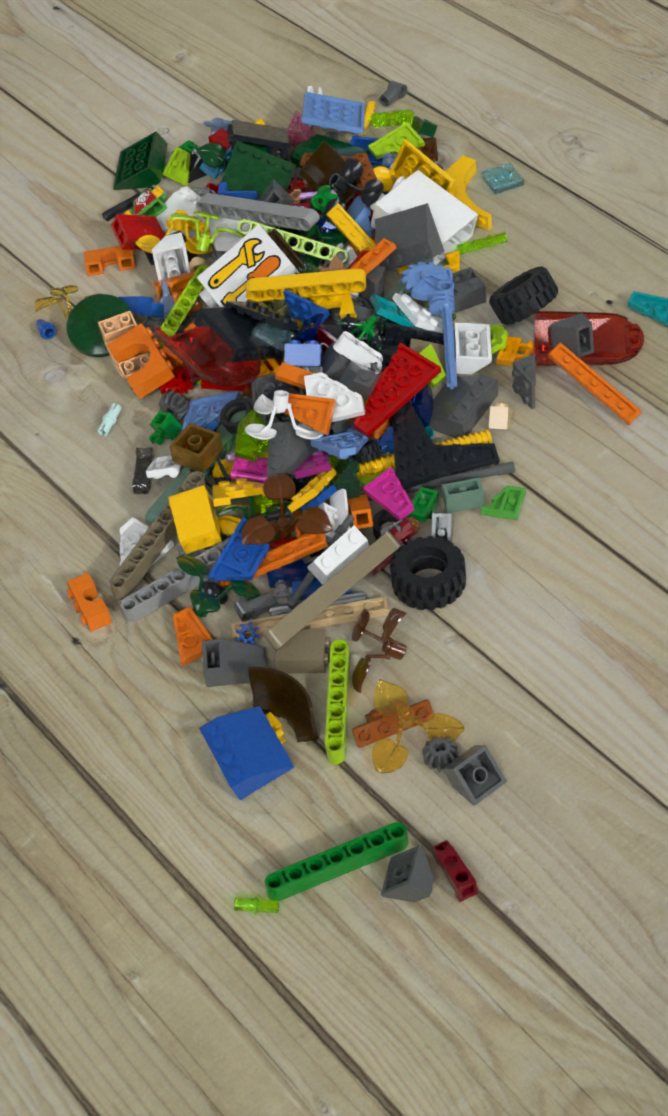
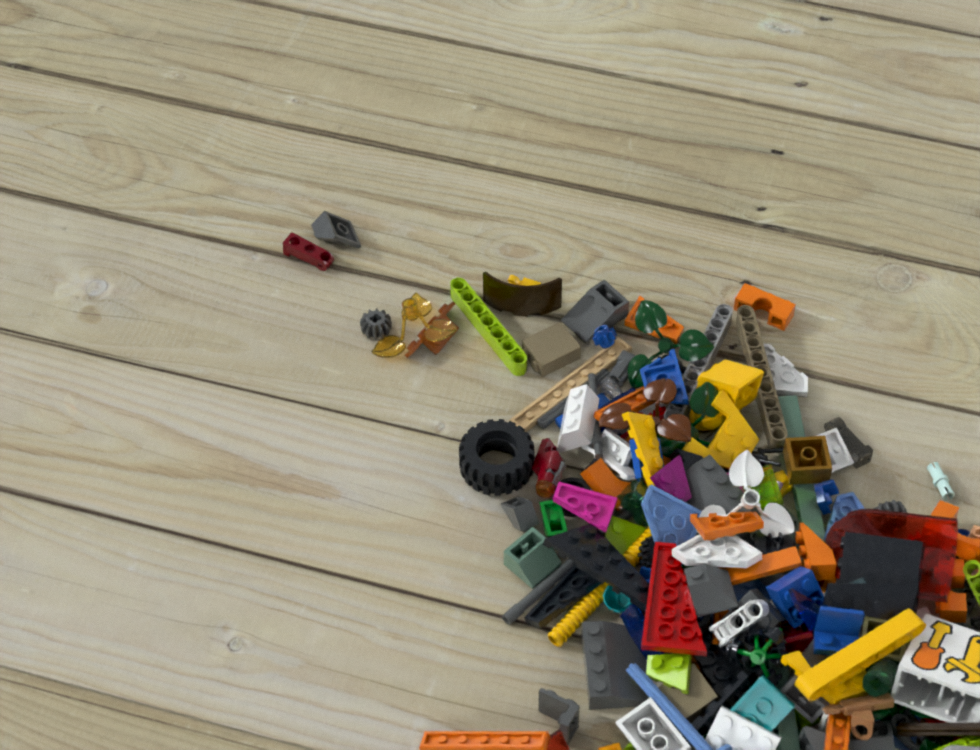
camera: 140 degrees right, 5 degrees up
(165, 427) = (873, 490): green brick -> none
(229, 410) = (808, 506): black tyre -> none
(246, 750) = (524, 252): blue slope -> none
(256, 905) = (430, 173): clear neon green axle -> none
(264, 370) = (815, 554): none -> orange slope
(329, 869) = (394, 220): green beam -> none
(331, 590) = (556, 387): dark tan beam -> none
(390, 646) = (478, 382): reddish brown plant -> none
(475, 774) = (339, 321): dark grey slope -> none
(500, 416) = (559, 669): tan slope -> none
(506, 504) = (482, 572): bright green wing -> none

